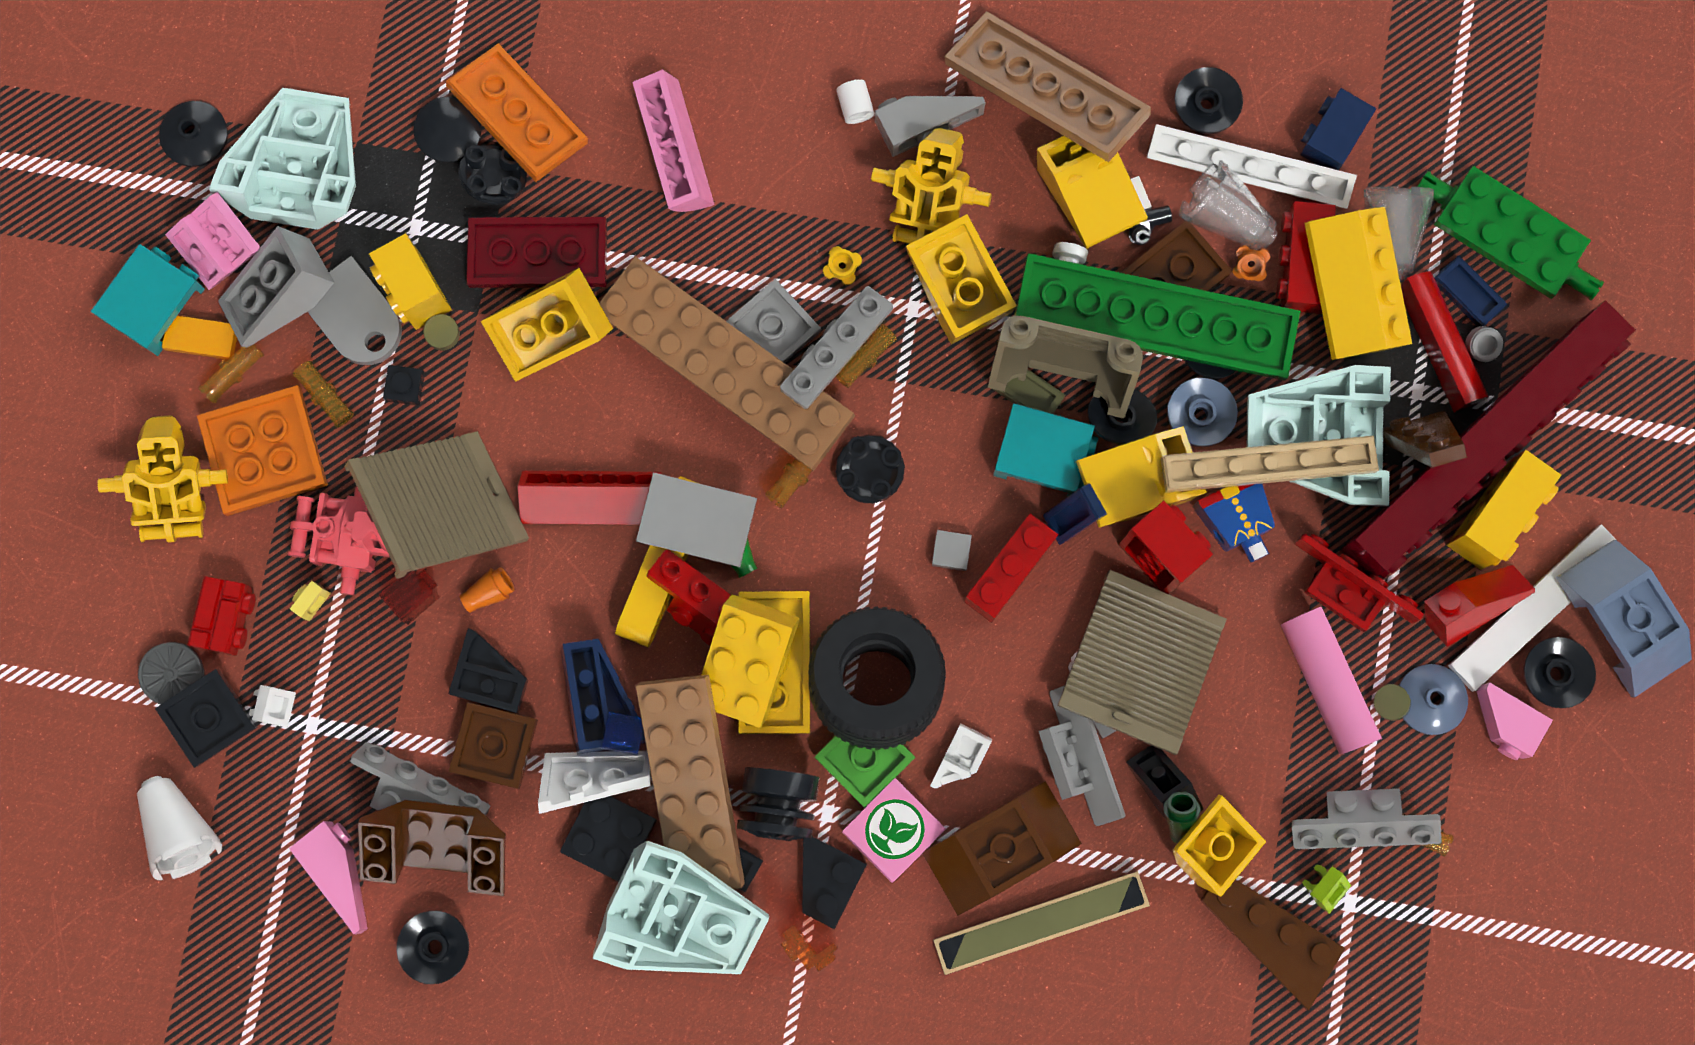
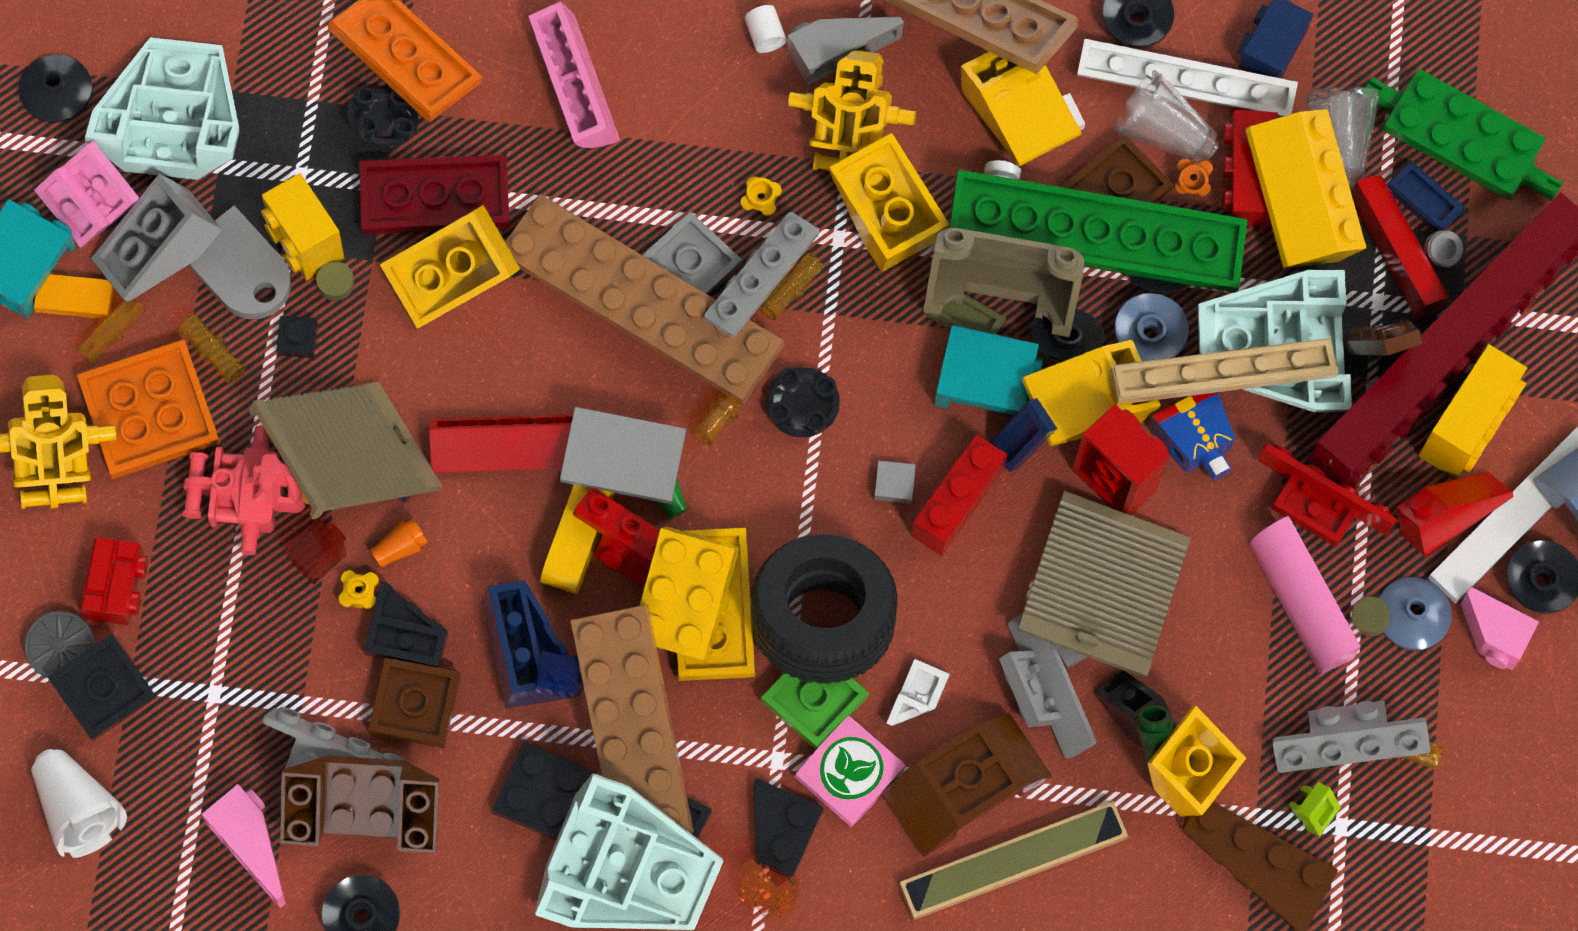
camera: 10 degrees left, 10 degrees down
(273, 706) = (173, 671): white tile -> none
(309, 600) = (207, 560): light yellow plate -> none
(446, 129) = (329, 73): black dish -> none
(452, 642) = (366, 597): none -> yellow plate
(590, 776) = (518, 728): white wing -> none
(778, 803) = (726, 742): black wheel -> none
(1141, 232) = (1075, 149): black arm -> none

